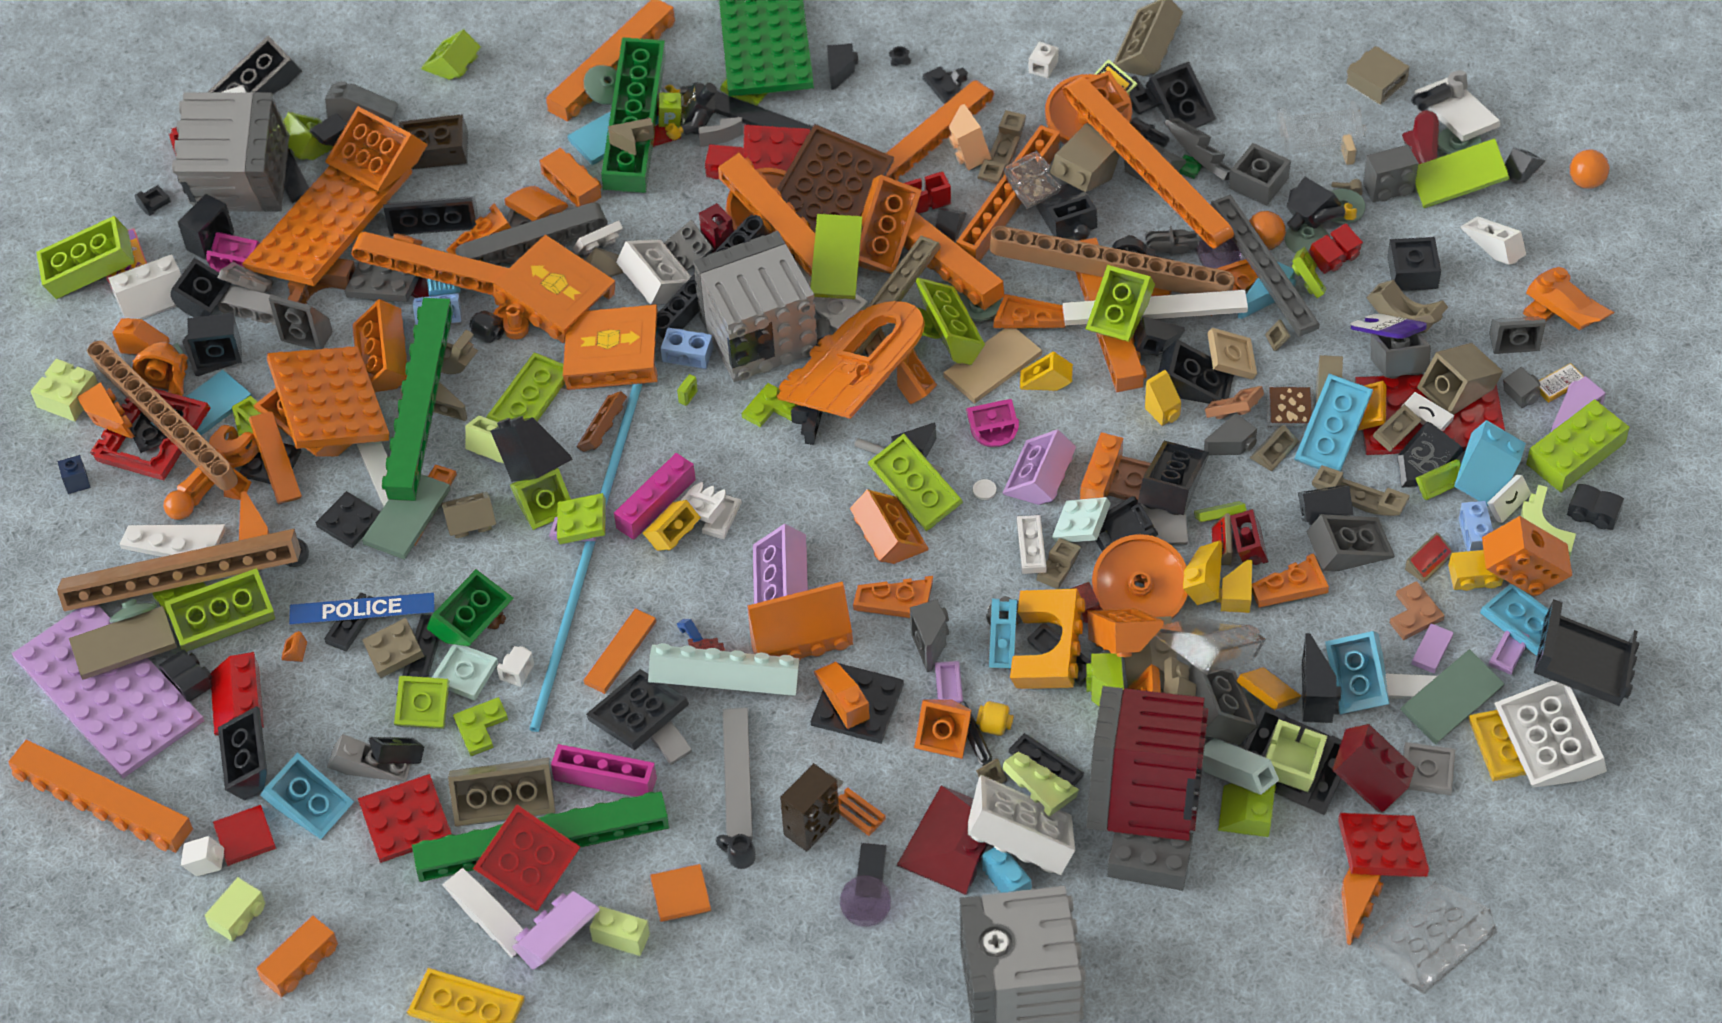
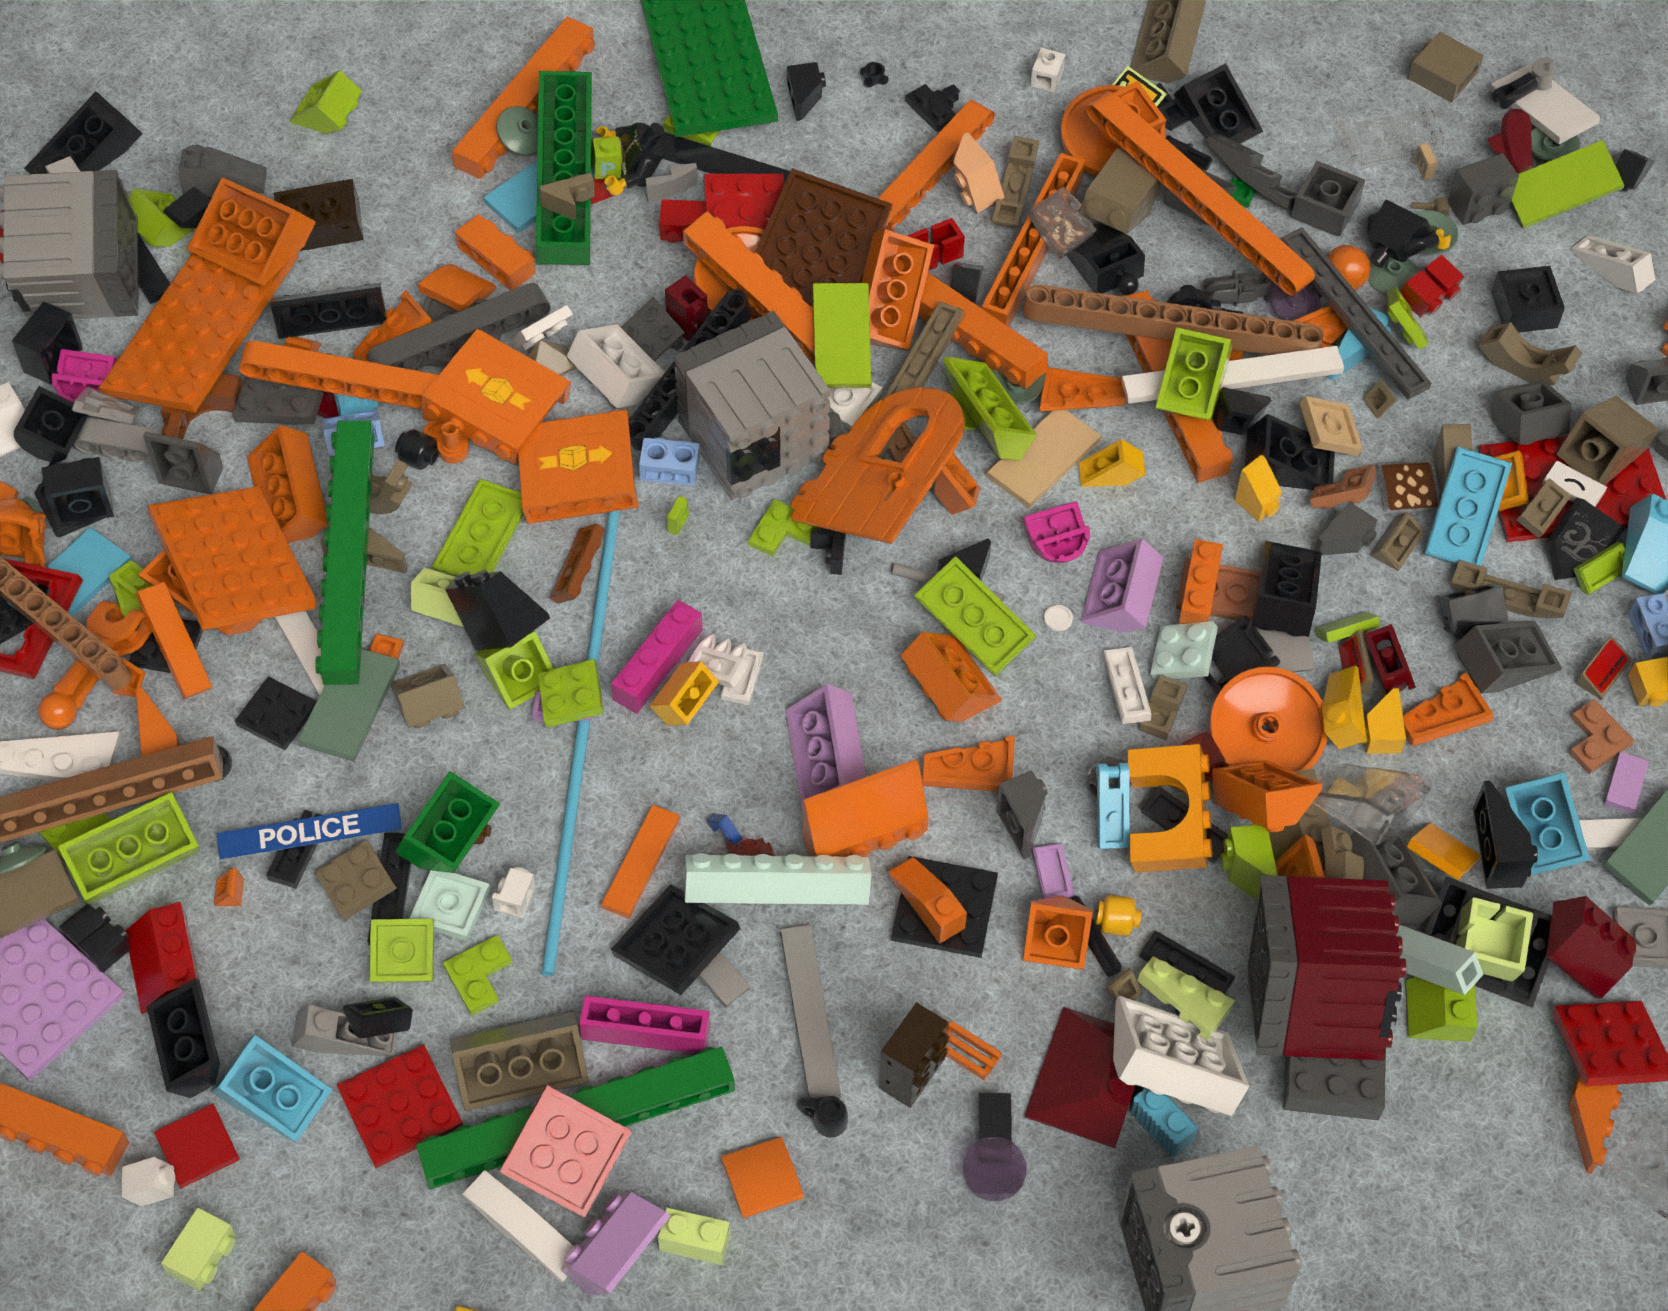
camera: 10 degrees left, 5 degrees up
(1389, 326) = (1512, 380): dark purple piece -> none

